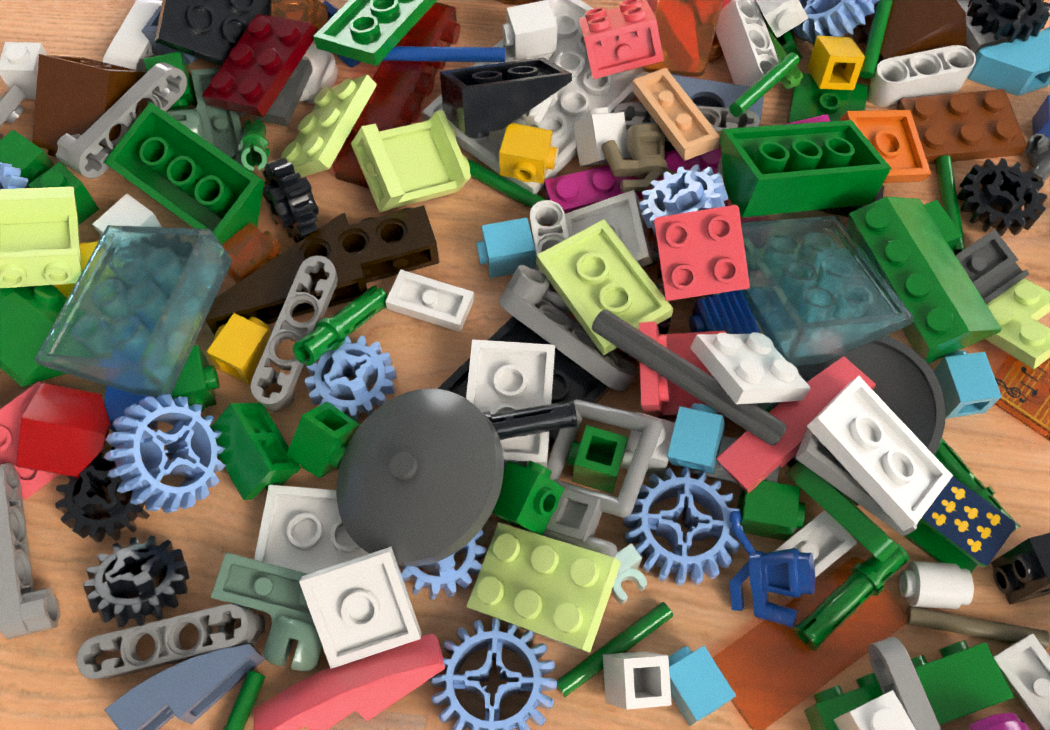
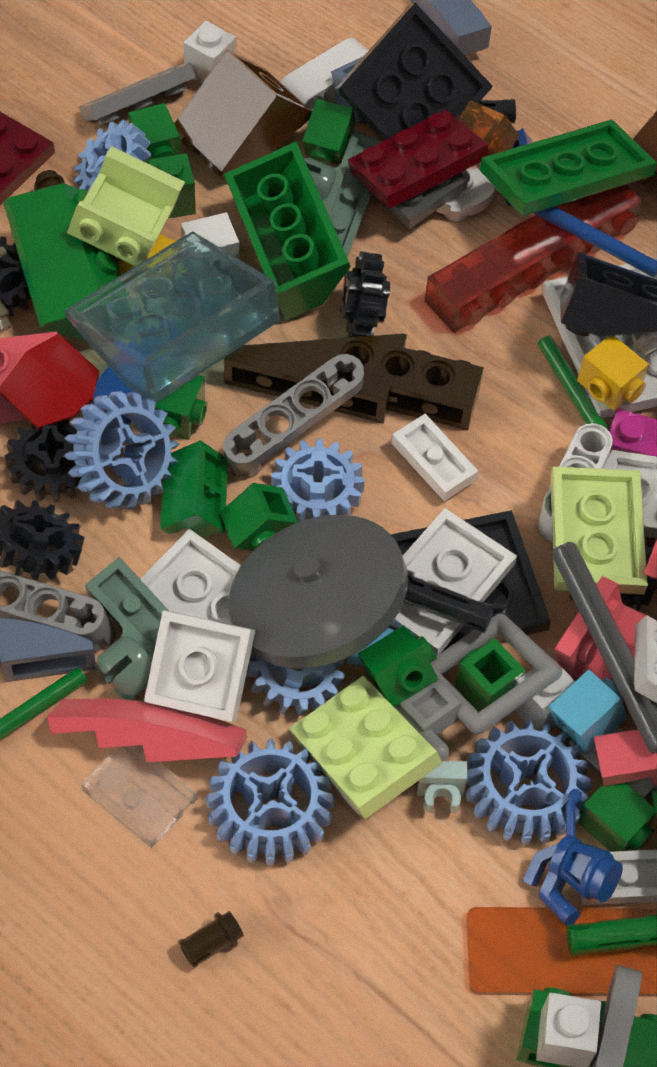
camera: 30 degrees right, 5 degrees down
(83, 151) = (212, 158): light grey beam -> none
(239, 347) = (238, 398): yellow brick -> none
(250, 251) = (301, 321): clear orange brick -> none
(254, 145) = (364, 229): green pin -> none
(328, 125) = (444, 247): yellowish green plate -> none
(332, 331) = (326, 430): green pin -> none
(411, 162) = (499, 322): yellowish green panel -> none
(506, 247) = (536, 449): medium azure brick -> none
(526, 303) = (518, 509): light grey beam -> none
(619, 644) = (394, 844): green bar -> none
(637, 680) = (392, 871): white brick -> none
(697, 684) = (443, 914): medium azure brick -> none

